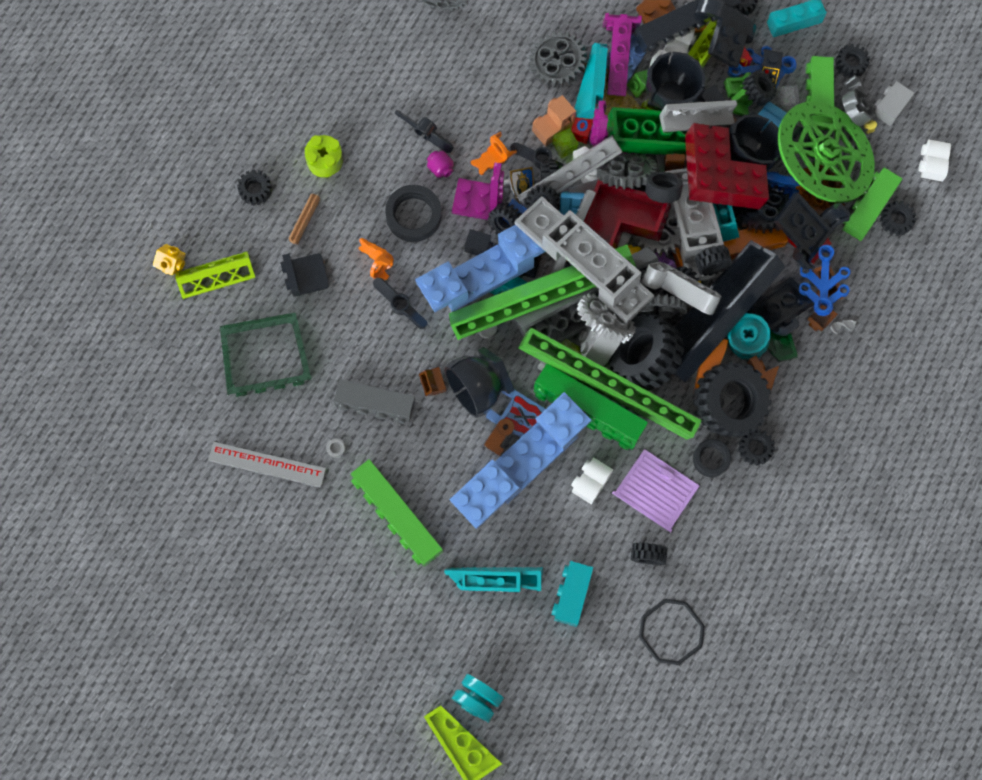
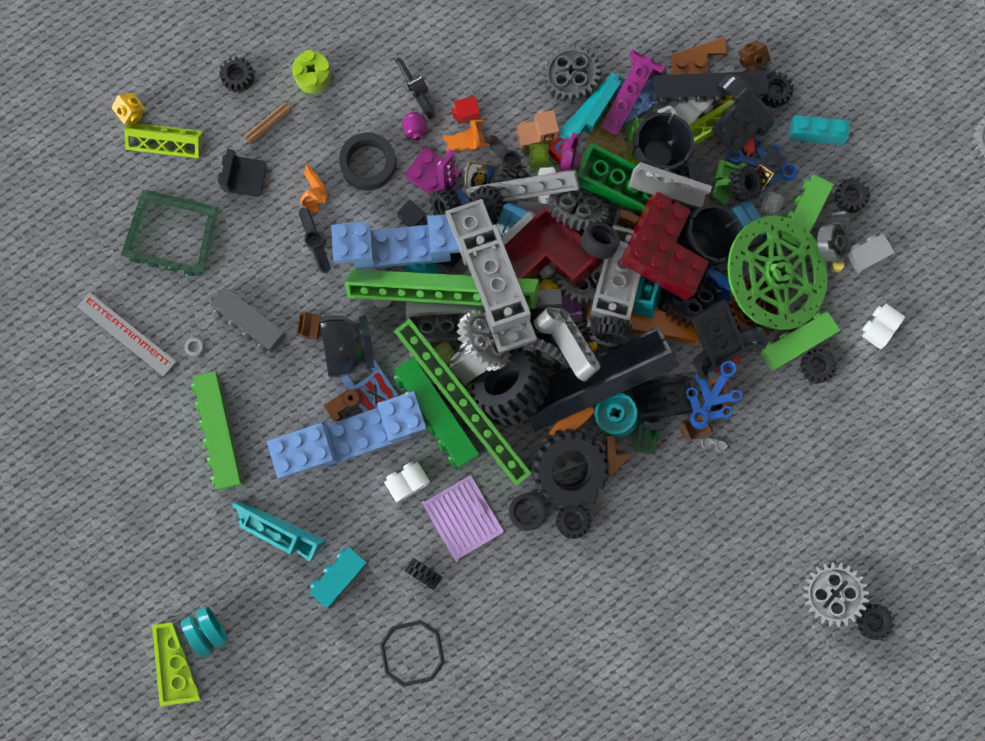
camera: 25 degrees right, 5 degrees up
(479, 130) = (465, 110): none -> red brick

